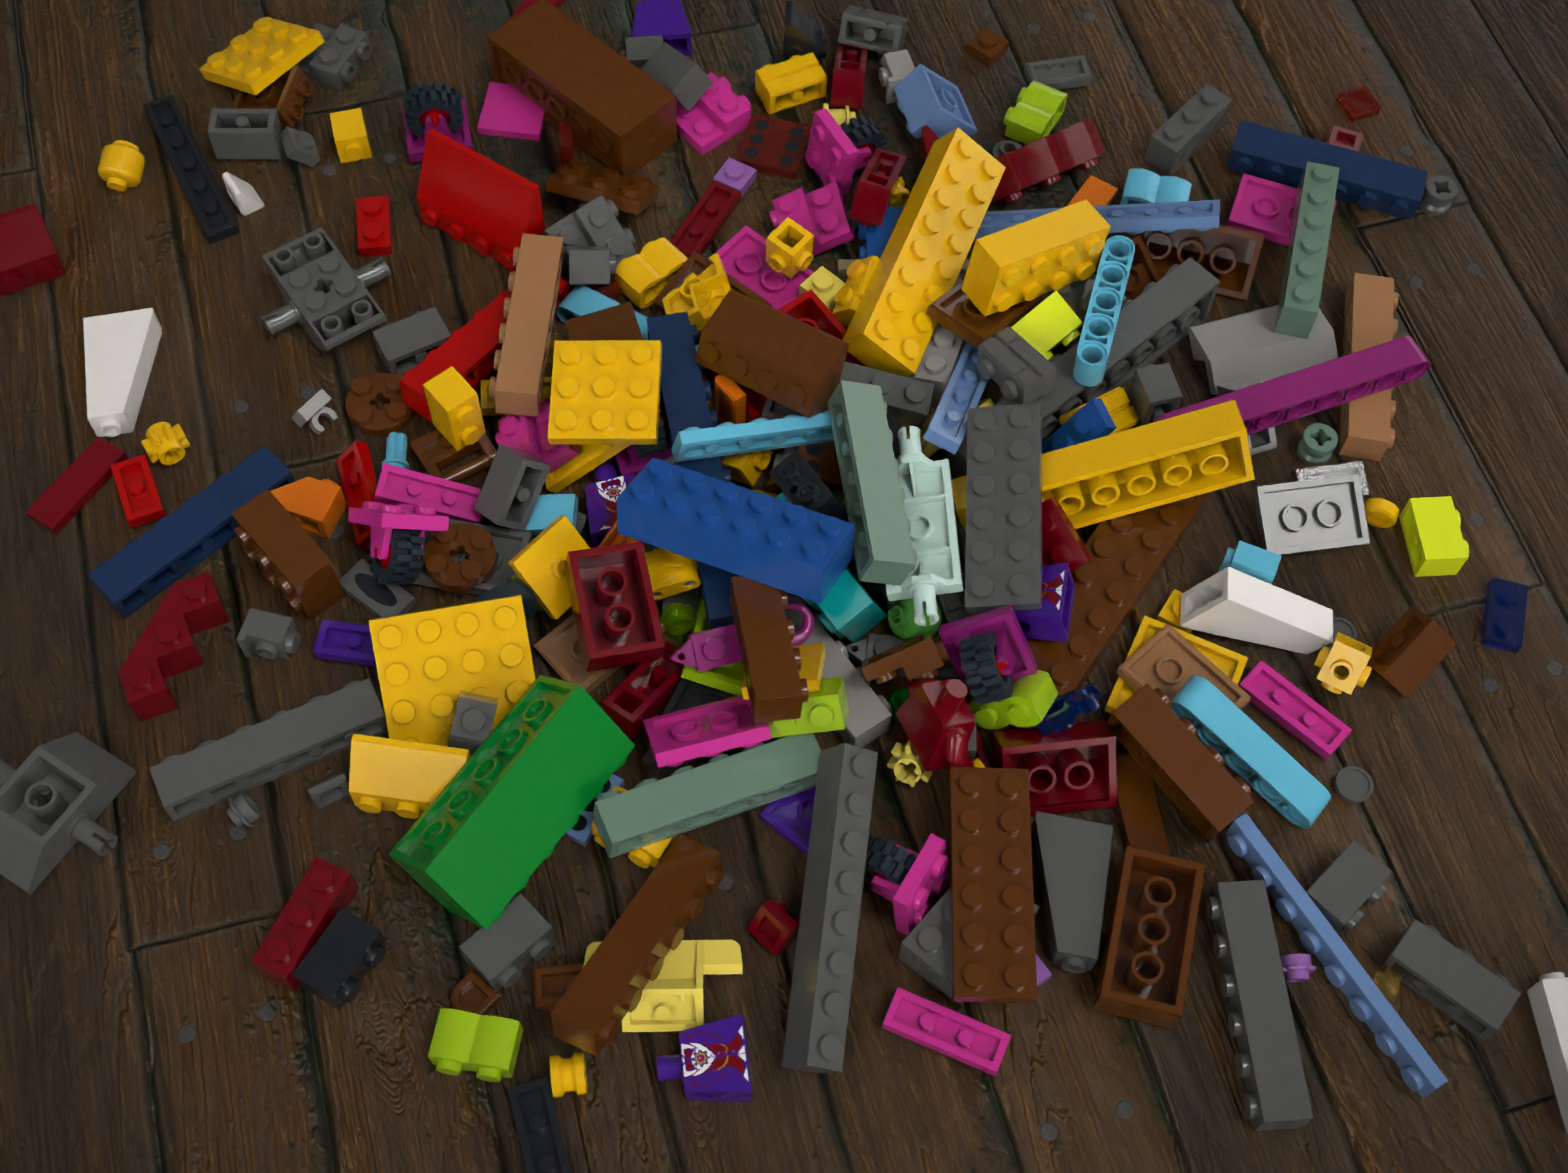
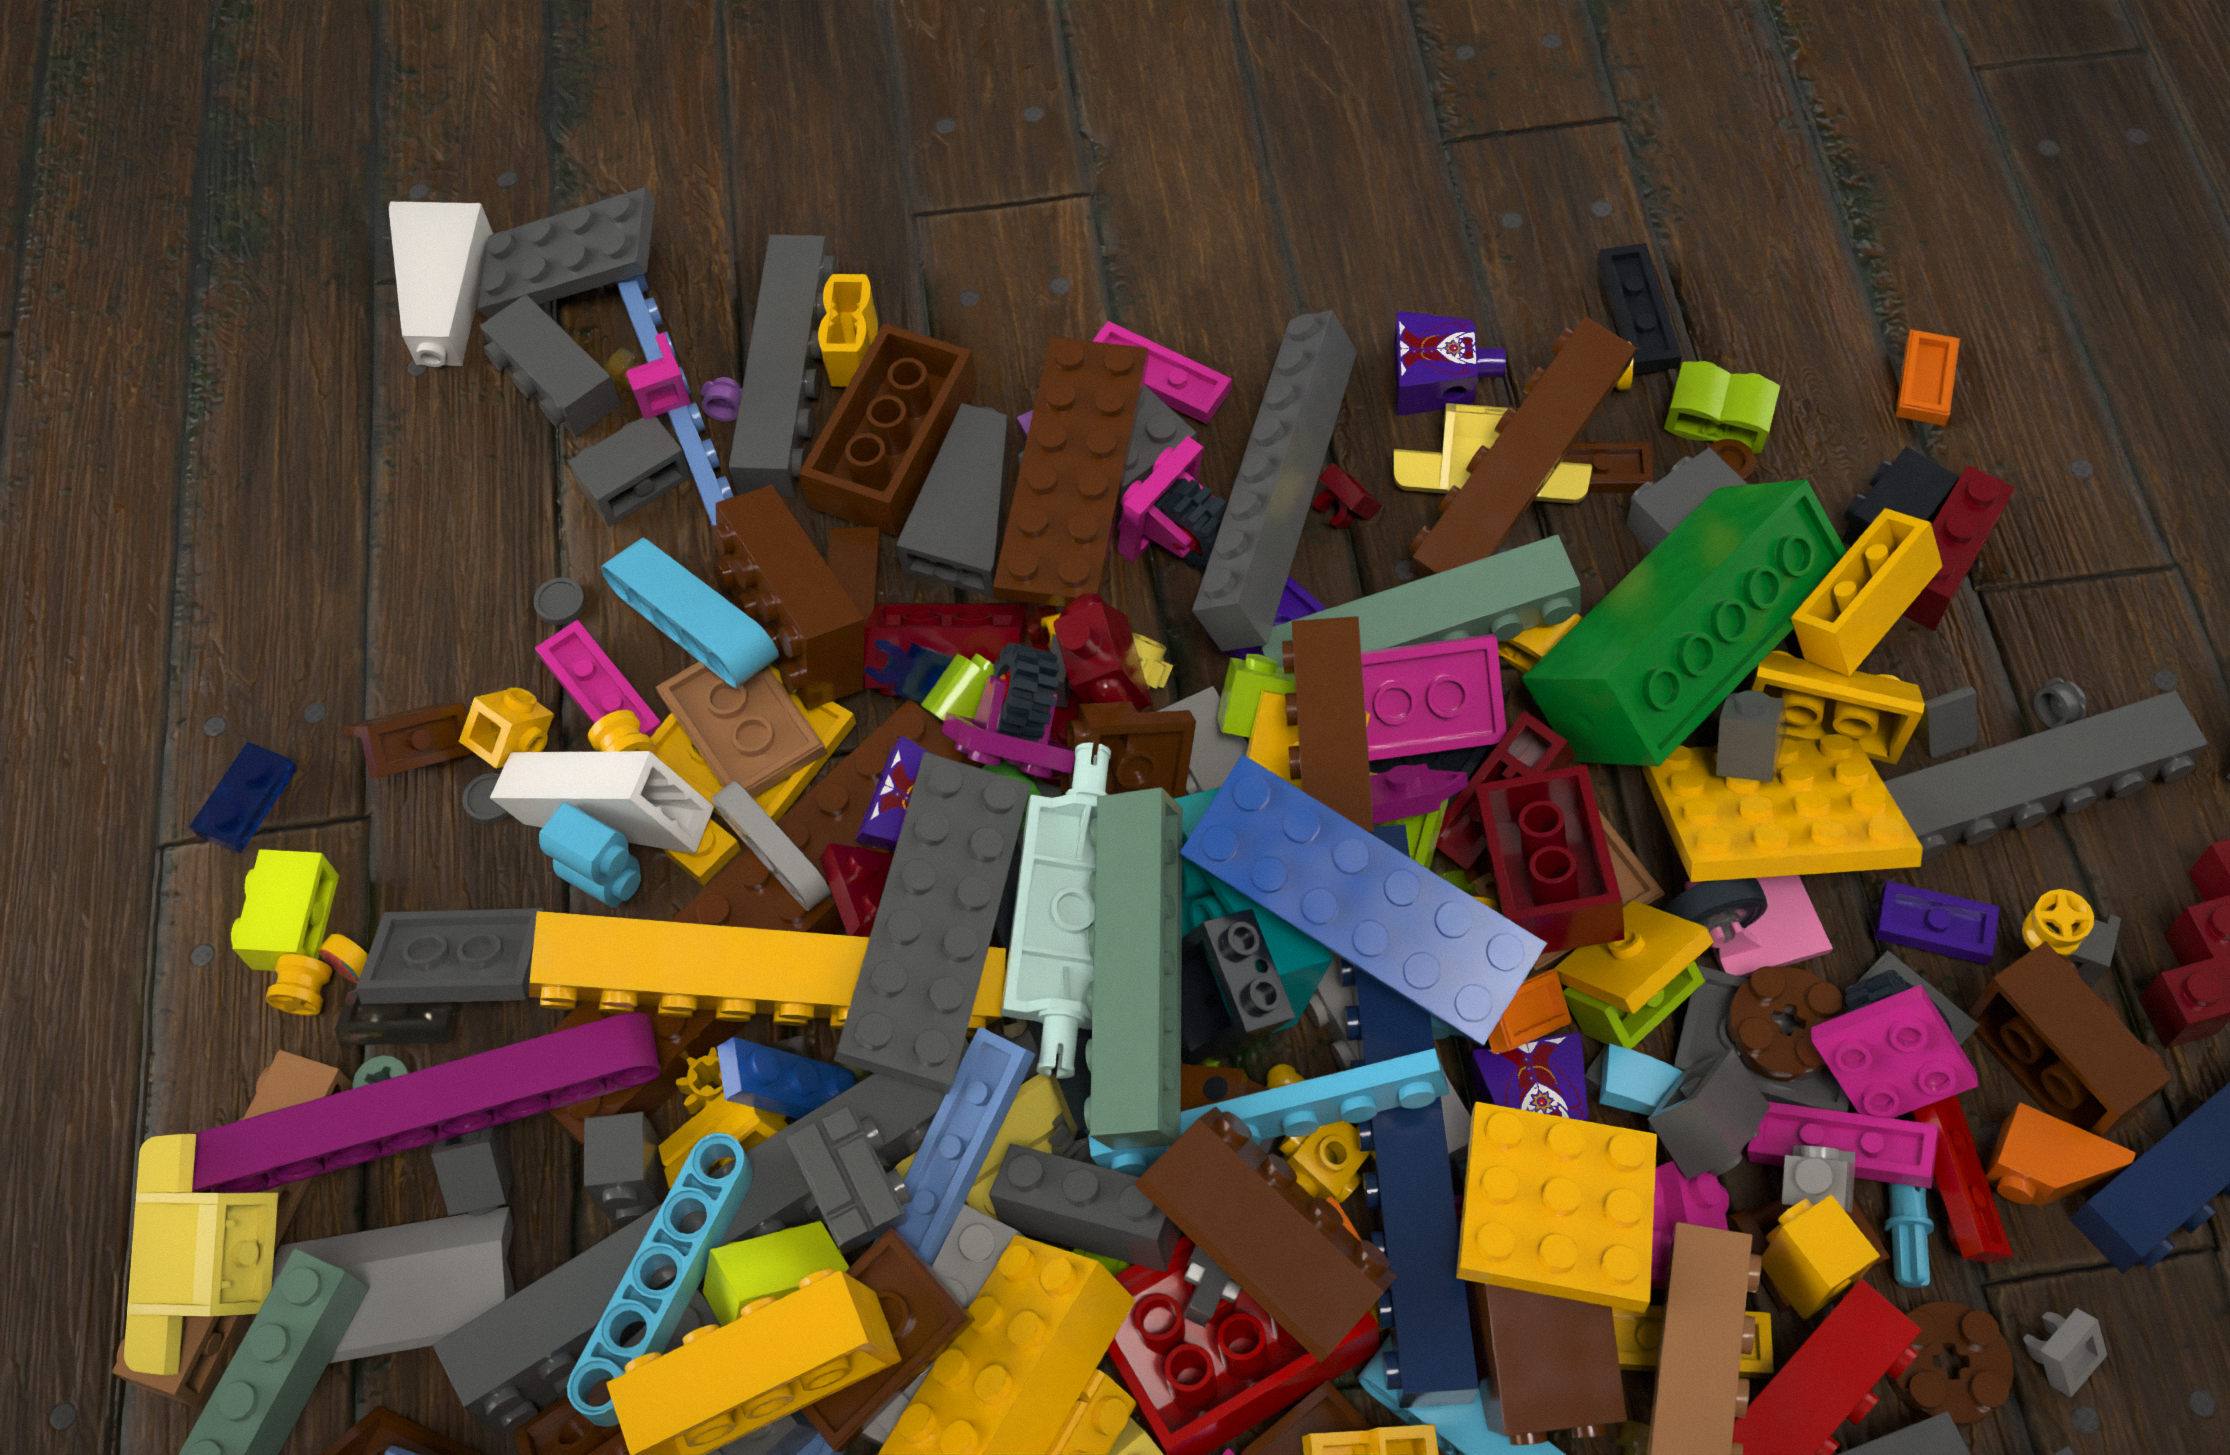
camera: 165 degrees left, 0 degrees up
(272, 613) = (2065, 911): none -> yellow wheel
(299, 1105) = (1927, 377): none -> orange tile
(381, 828) = (1867, 591): none -> yellow brick
(449, 456) = (1817, 1173): none -> light grey brick
(1129, 568) = (771, 845): none -> light grey beam
(1216, 1040) = (847, 326): none -> yellow brick
(1258, 650) = (619, 733): none -> yellow wheel
(1347, 940) = (658, 383): none -> dark pink panel
(1375, 311) = (190, 1254): none -> light yellow plate
(1400, 489) = (299, 984): none -> yellow wheel
(1482, 1082) = (568, 252): none -> dark grey plate

